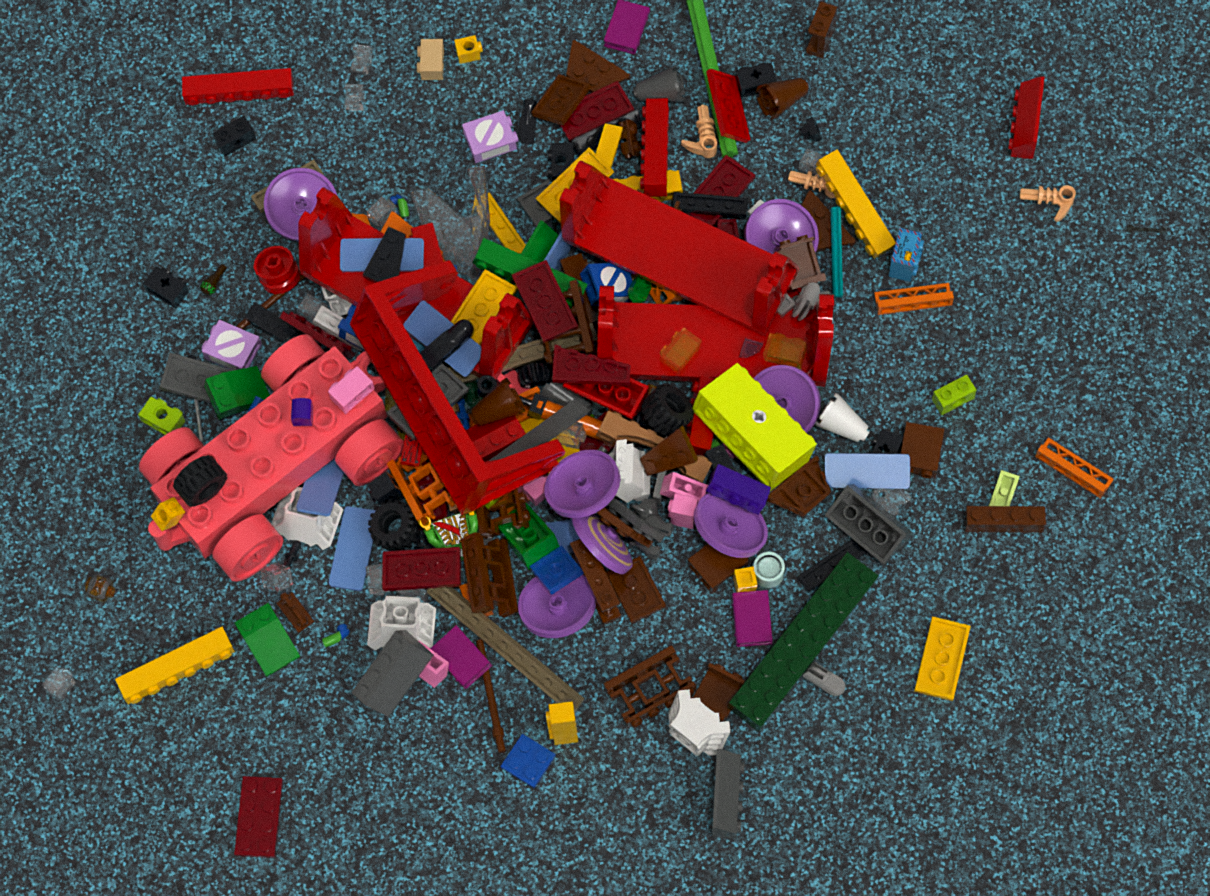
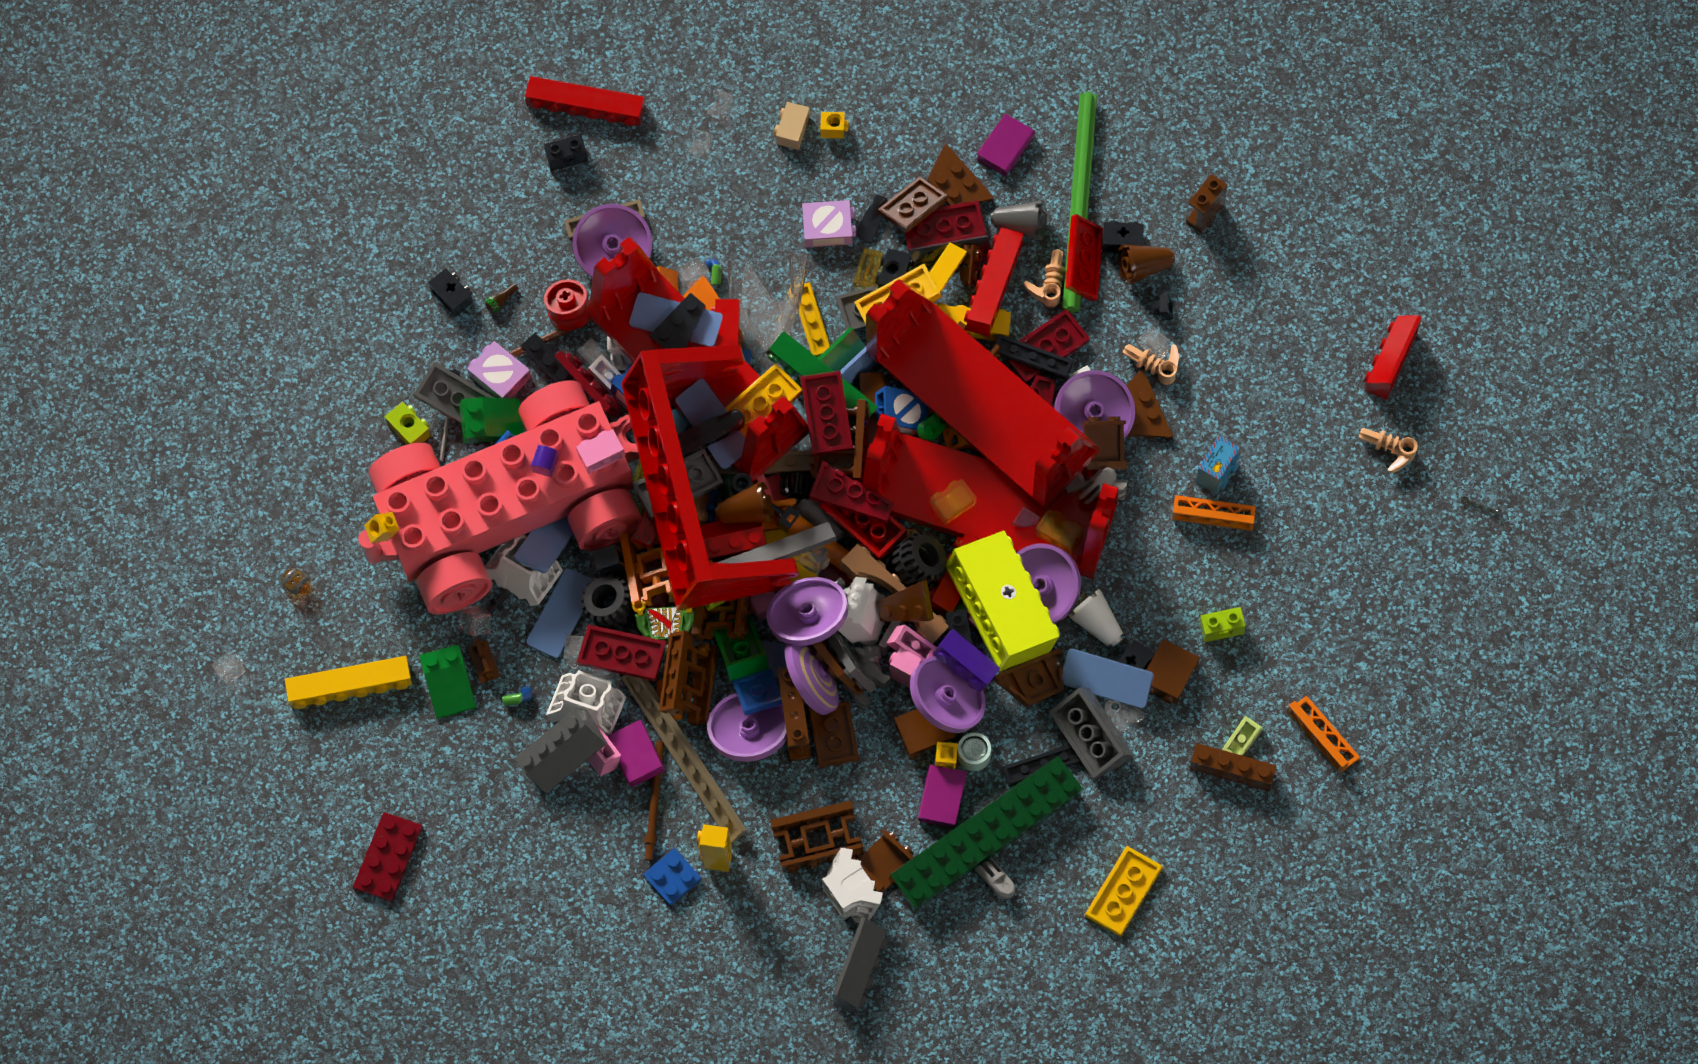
camera: 15 degrees right, 0 degrees up
(200, 481) = (422, 503): black tyre -> none
(537, 181) = (864, 283): none -> clear yellow tile
(836, 246) = (1148, 442): teal axle -> none
(855, 204) = (1182, 397): yellow brick -> none

